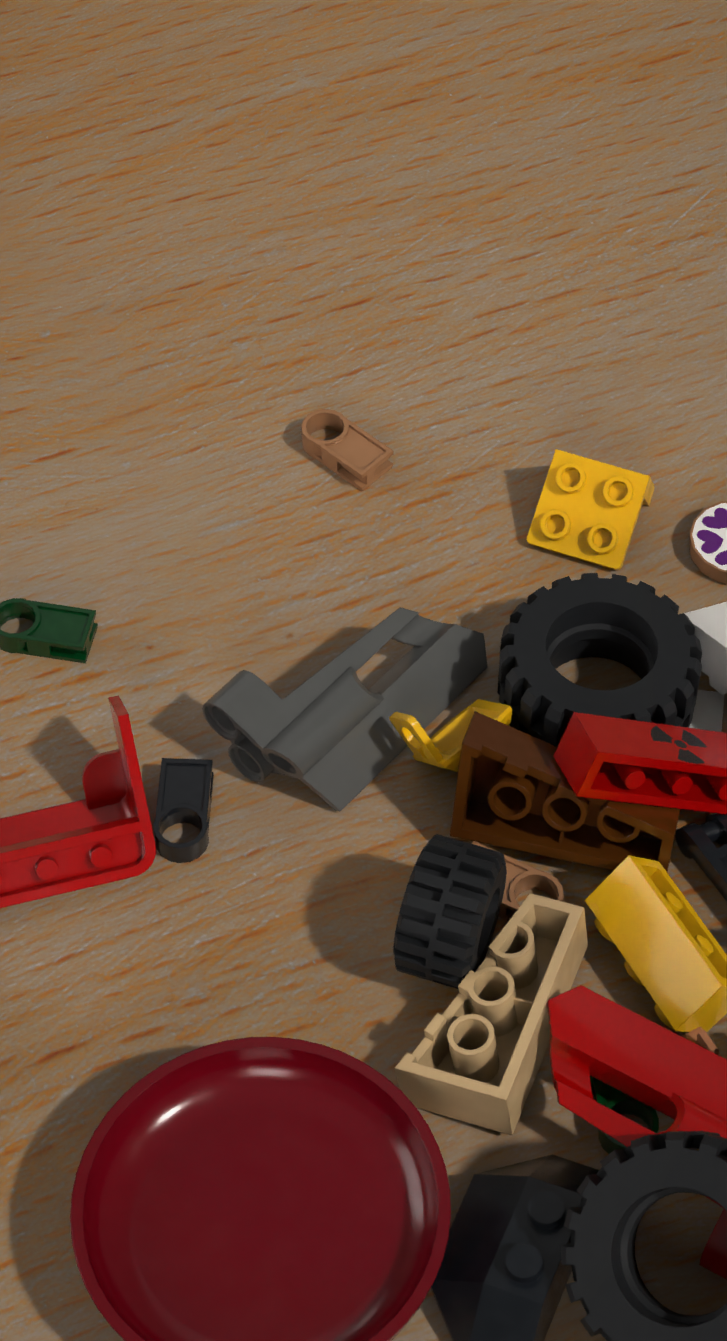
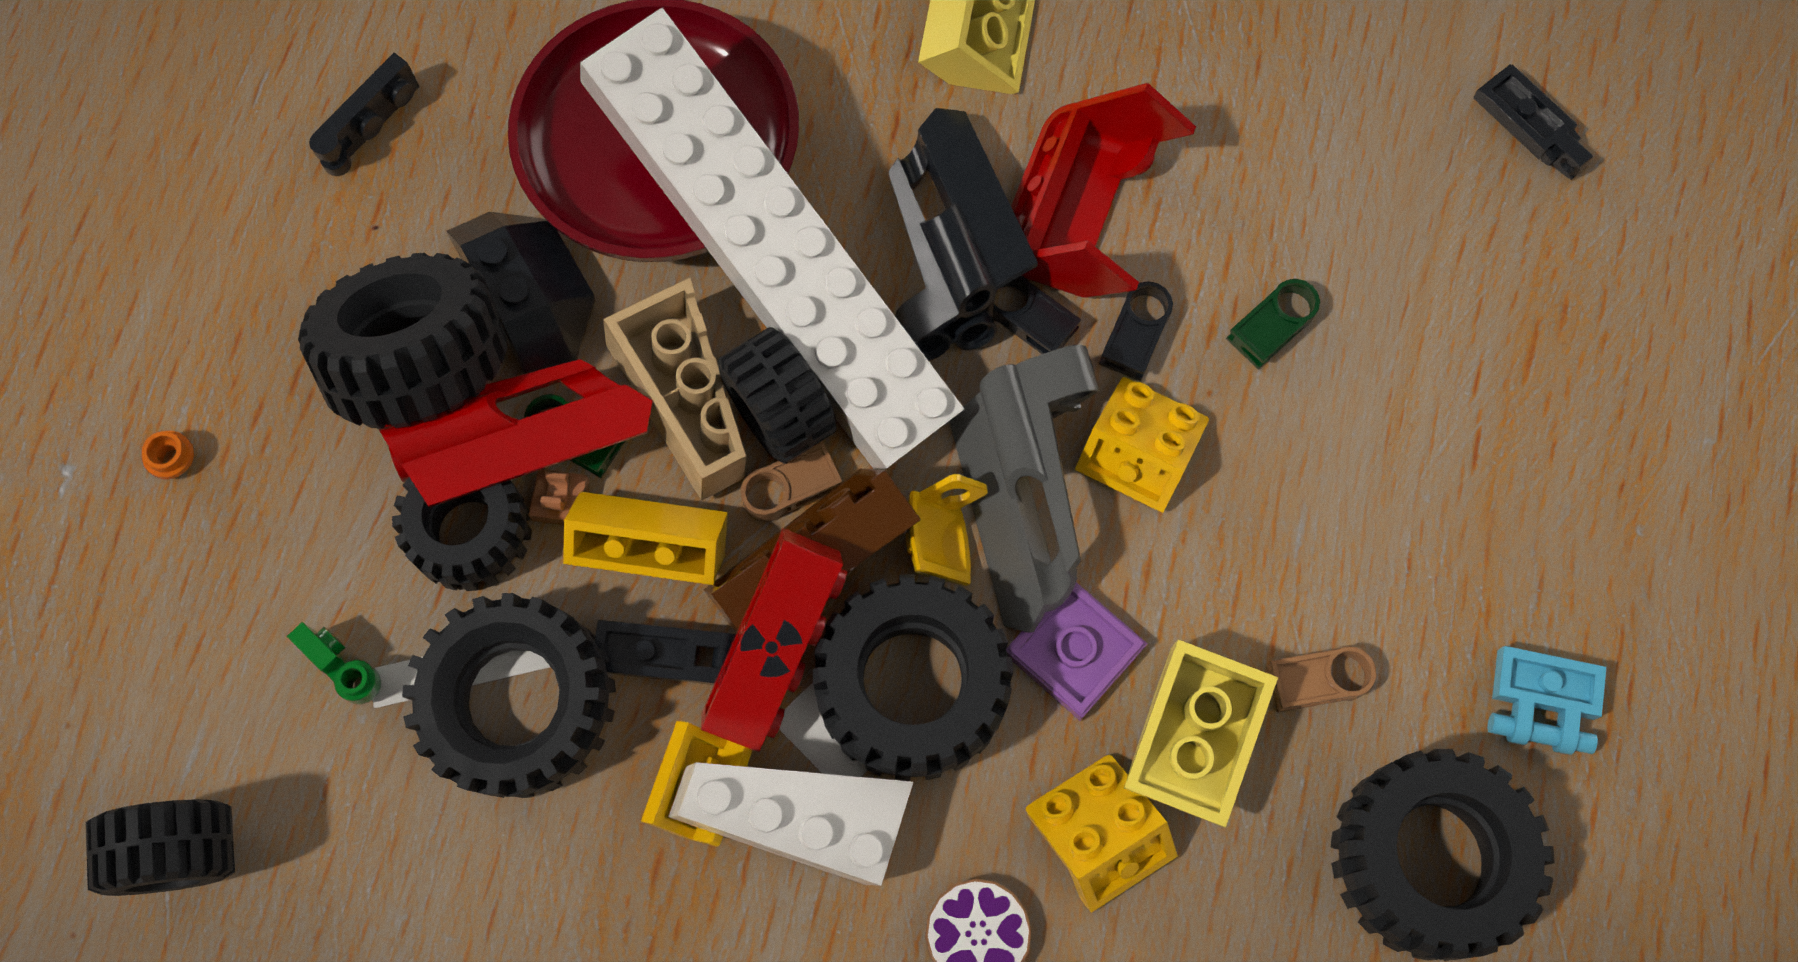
camera: 125 degrees right, 20 degrees up
(153, 714) = (1134, 338): none -> black piece
(165, 847) = (964, 249): none -> black panel
(229, 318) = (1549, 684): none -> medium azure plate
(240, 635) = (1142, 443): none -> yellow bracket
(302, 1015) = (768, 237): none -> white brick
(423, 348) = (1507, 841): none -> black tyre
(460, 478) = (1200, 732): none -> light yellow slope
(466, 596) = (1077, 651): none -> medium lavender tile

